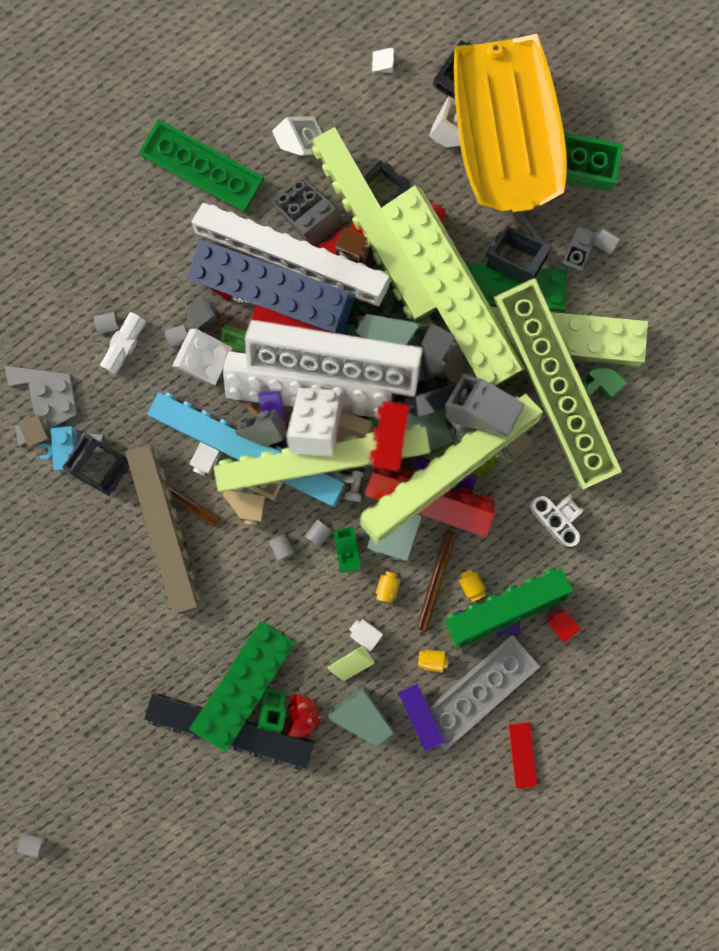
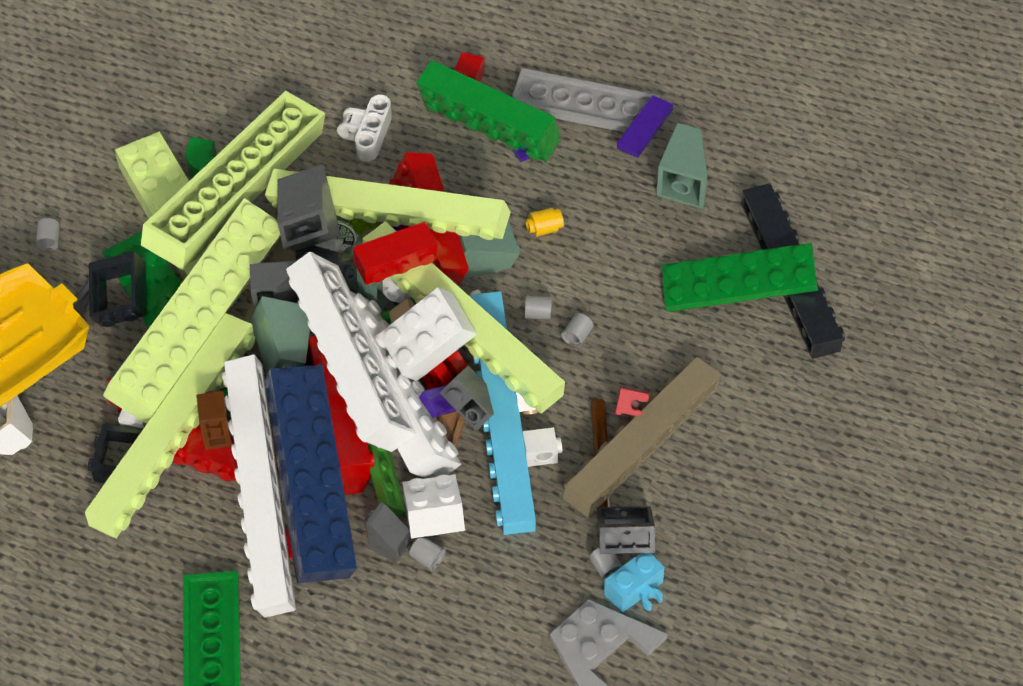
camera: 120 degrees left, 30 degrees down
(35, 430) = (636, 616): dark tan brick -> none
(106, 323) = (463, 631): light grey beam -> none
(123, 343) = (474, 600): white piece -> none
(191, 537) = (626, 401): none -> hinge
(247, 506) = (568, 372): tan slope -> none
(271, 712) = (748, 238): green brick -> none
(297, 134) = (112, 566): white slope -> none
(302, 716) = (730, 214): red cylinder -> none
(308, 212) = (194, 513): dark grey slope -> none
(347, 550) = (537, 272): green brick -> none
(352, 663) = (641, 207): yellowish green slope -> none
(365, 634) = (605, 213): white brick -> none
(433, 660) = (585, 150): yellow brick -> none
(436, 580) = (521, 186): reddish brown axle -> none
(472, 585) = (487, 157): yellow brick -> none
(522, 755) = (614, 44): red tile -> none
(579, 249) = (74, 248): dark grey slope -> none

